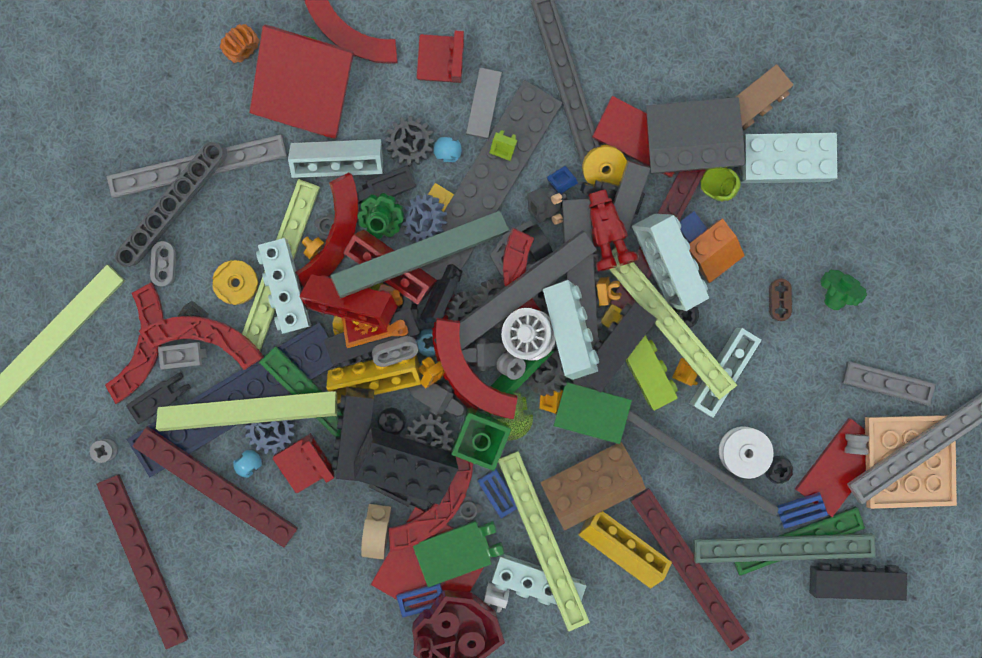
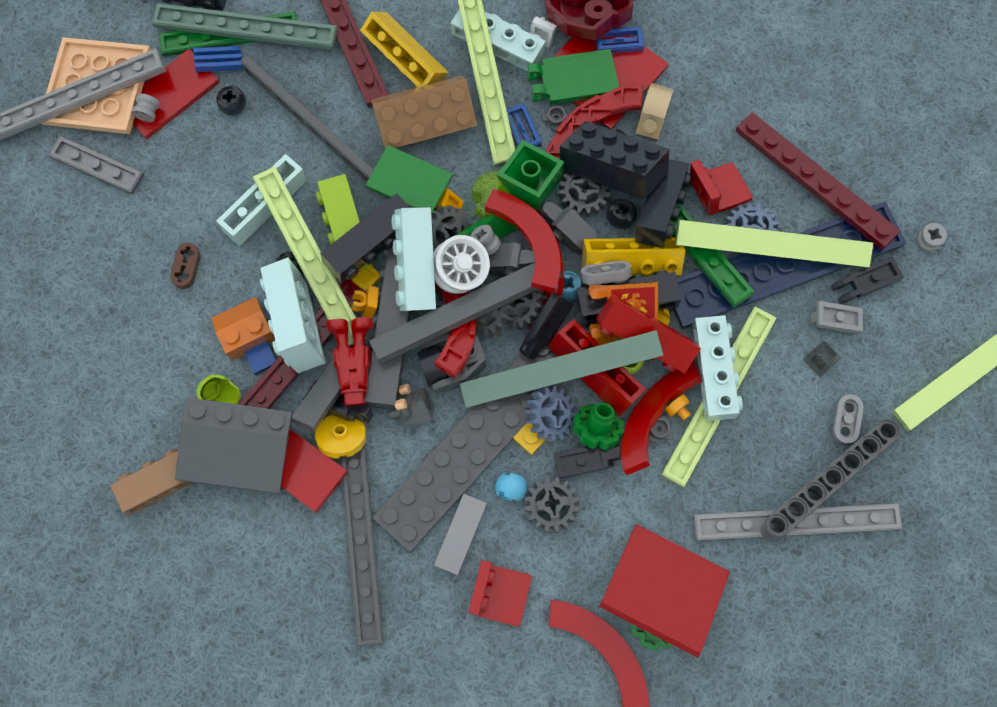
camera: 170 degrees left, 15 degrees down
(142, 561) = (901, 126): dark red plate -> none
(144, 358) = (872, 339): red tile -> none
(204, 330) = (808, 337): red tile -> none
(223, 281) = (782, 382): yellow plate -> none
(239, 43) = (731, 651): orange gear -> none
(246, 464) = (779, 197): medium azure piece -> none
(335, 158) = (638, 498): light aqua brick -> none
(431, 371) = (571, 248): light orange tile -> none
(503, 146) = (448, 475): lime tile -> none
(562, 180) = (390, 431): blue tile -> none
(685, 373) = (305, 206): light orange tile -> none
(746, 452) = (260, 120): white wheel -> none
(789, 158) = (134, 408): light aqua brick -> none
(842, 290) = (117, 261): green plant -> none

